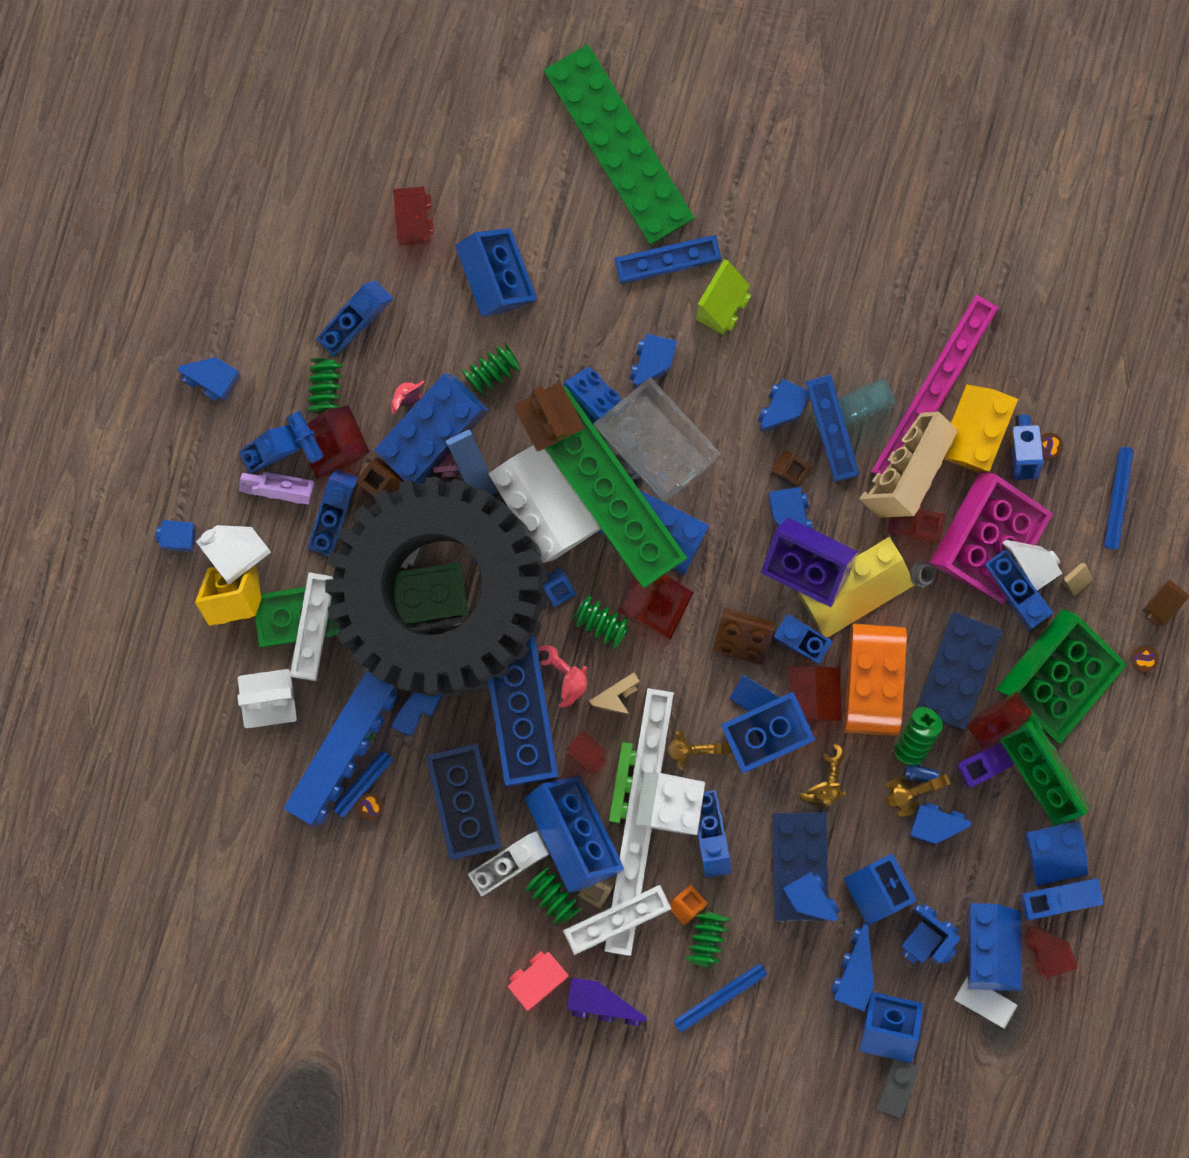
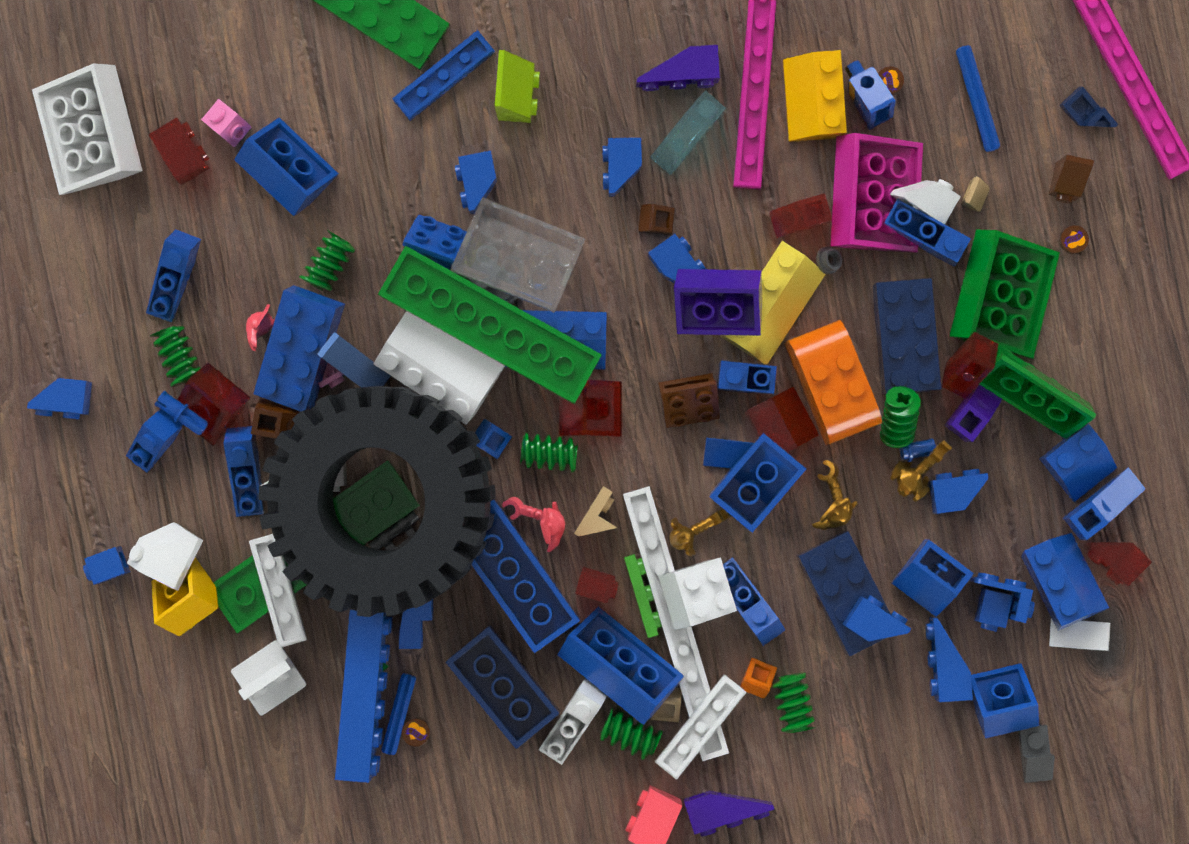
camera: 30 degrees left, 5 degrees up
(277, 487) = (179, 472): lavender hinge -> none
(343, 160) = (87, 128): none -> white slope
(463, 211) = (226, 123): none -> bright pink bracket
(548, 416) = (404, 283): reddish brown bracket -> none
(720, 997) = (831, 750): blue axle -> none
(832, 427) = (677, 162): blue tile -> none
(882, 352) = (691, 66): none -> dark purple slope
(911, 467) = (772, 164): tan wedge -> none

